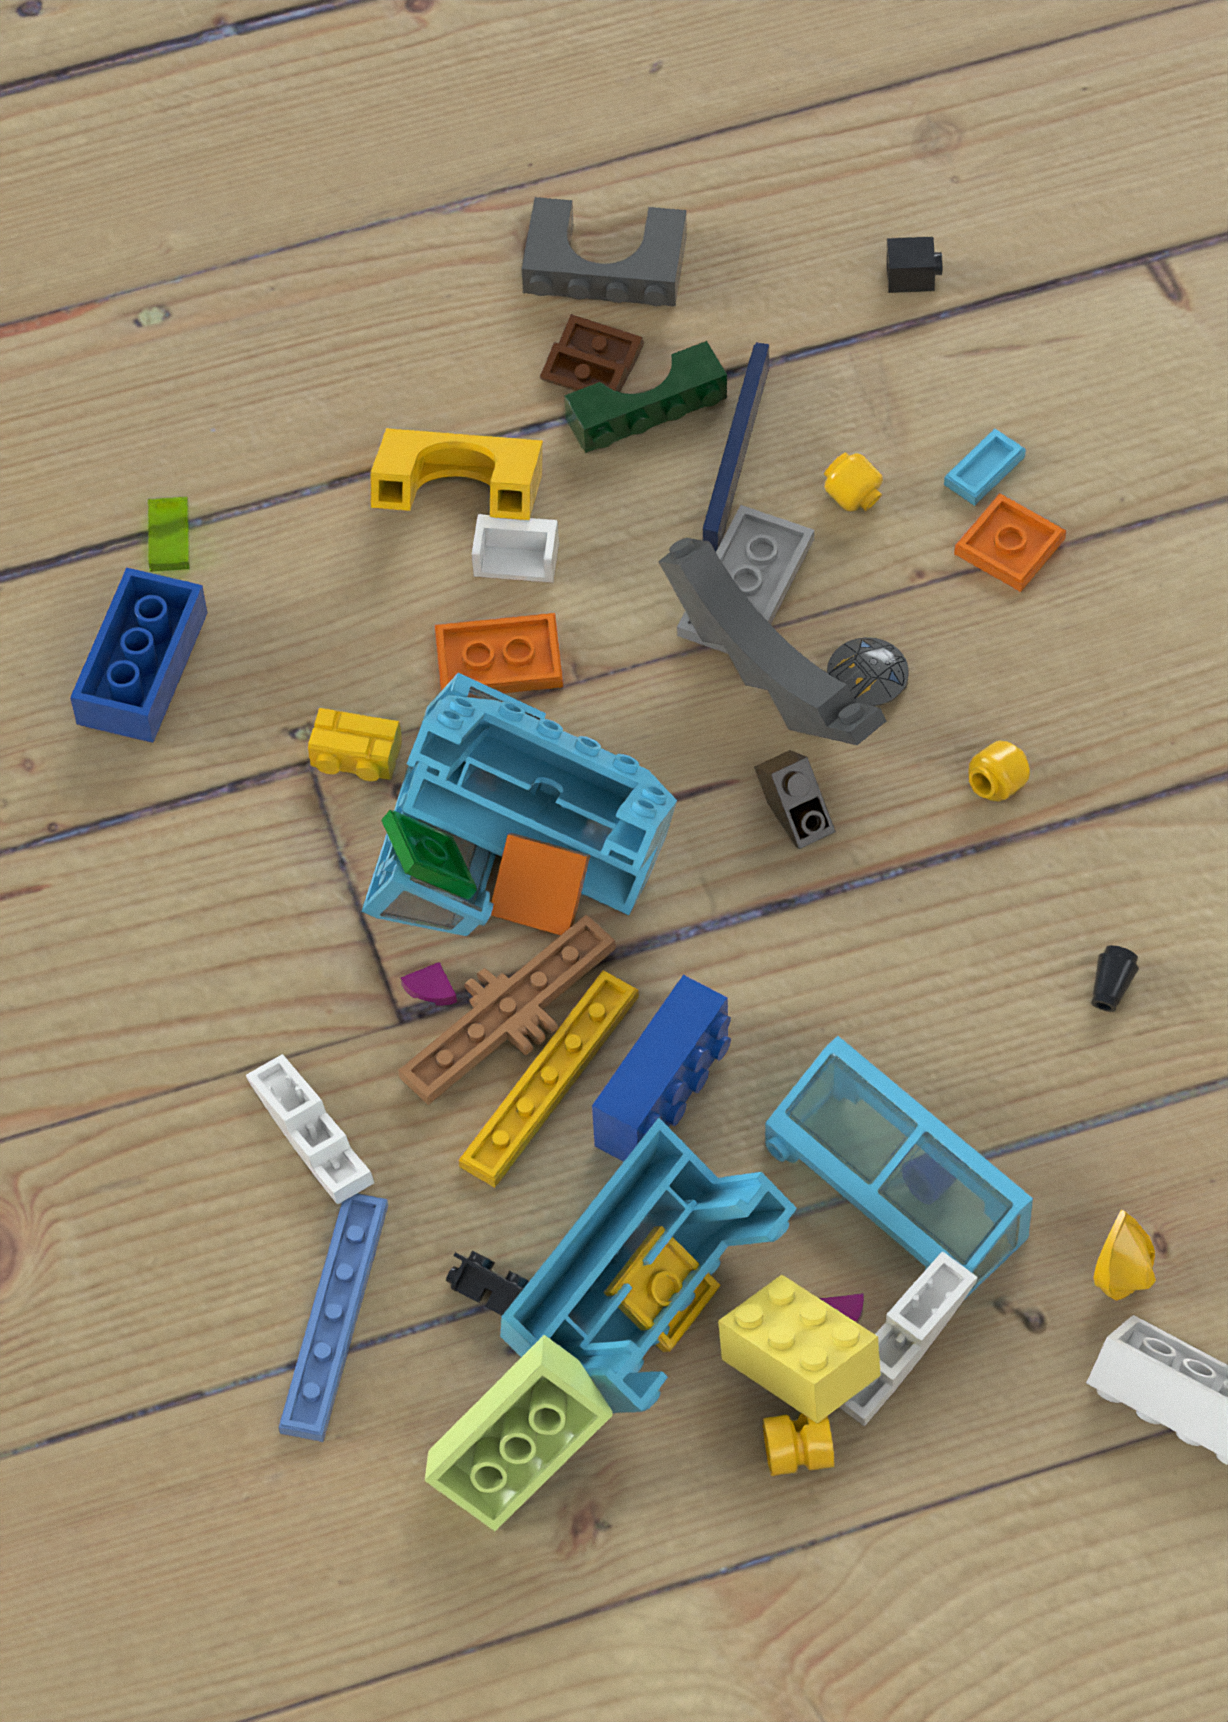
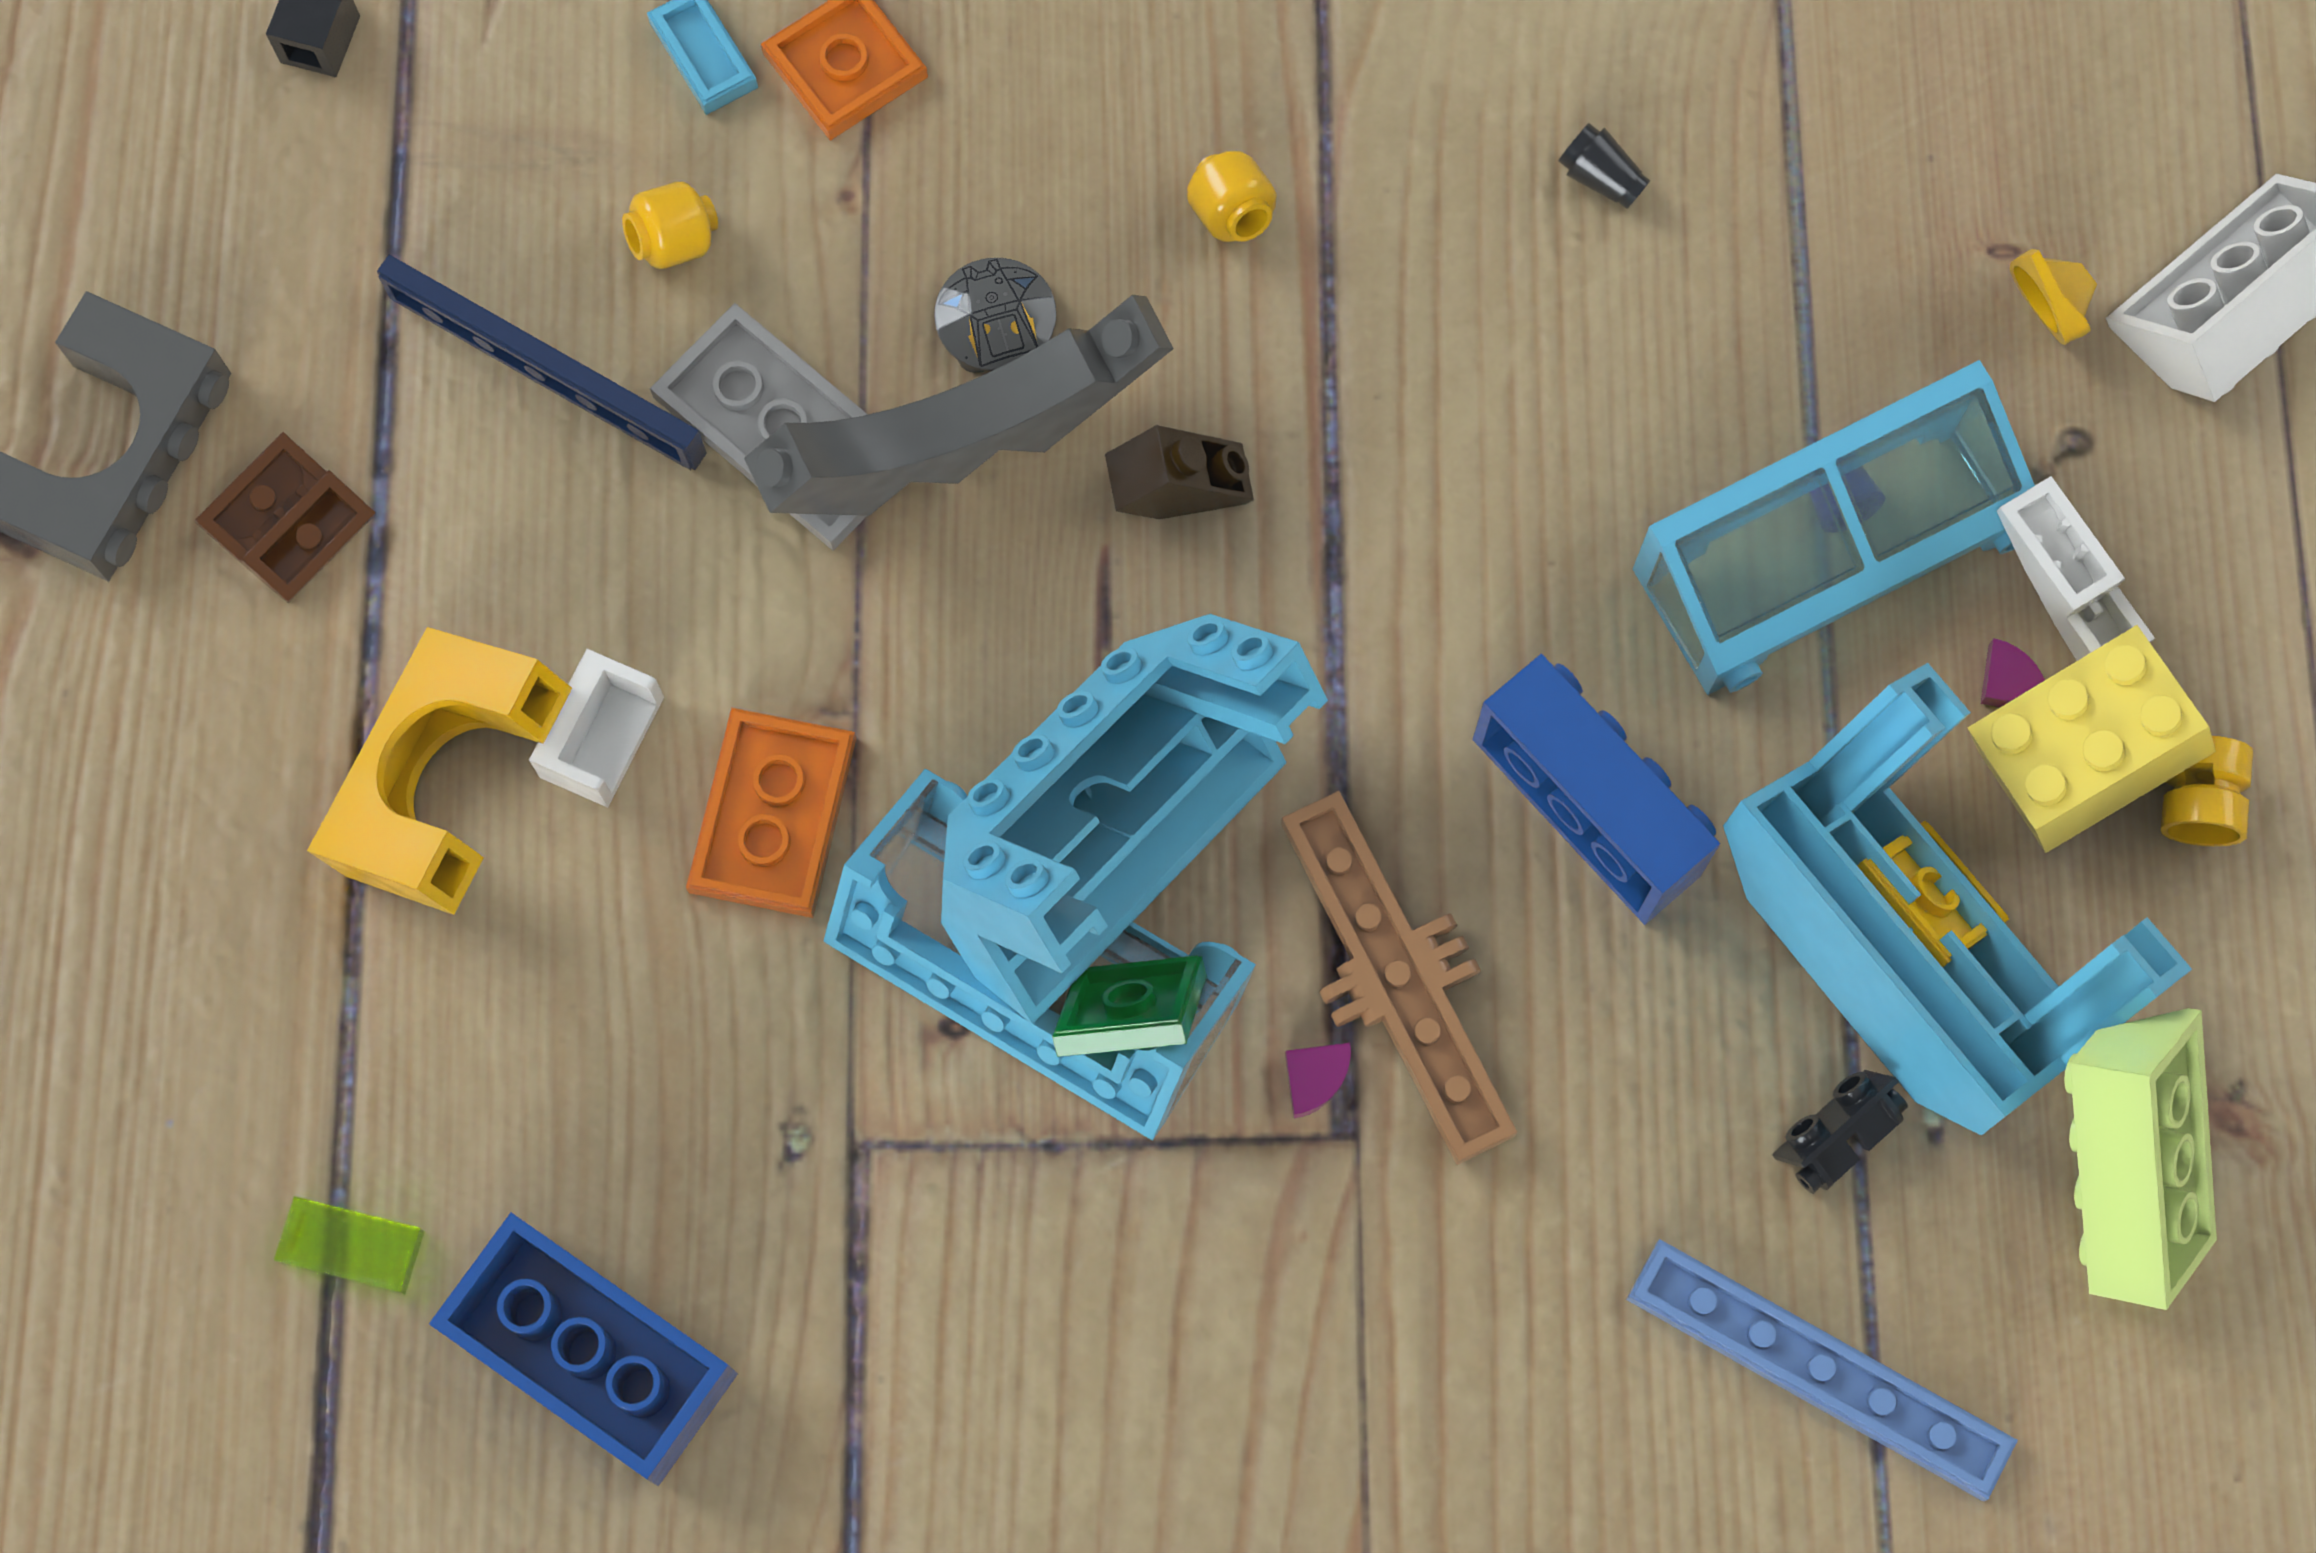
camera: 75 degrees left, 15 degrees up
(310, 1129) = (1508, 1318): white slope -> none
(354, 744) = (865, 1065): yellow brick -> none
(539, 884) = (1215, 865): orange tile -> none
(548, 1079) = (1522, 954): yellow tile -> none
(605, 416) = (403, 529): dark green arch -> none

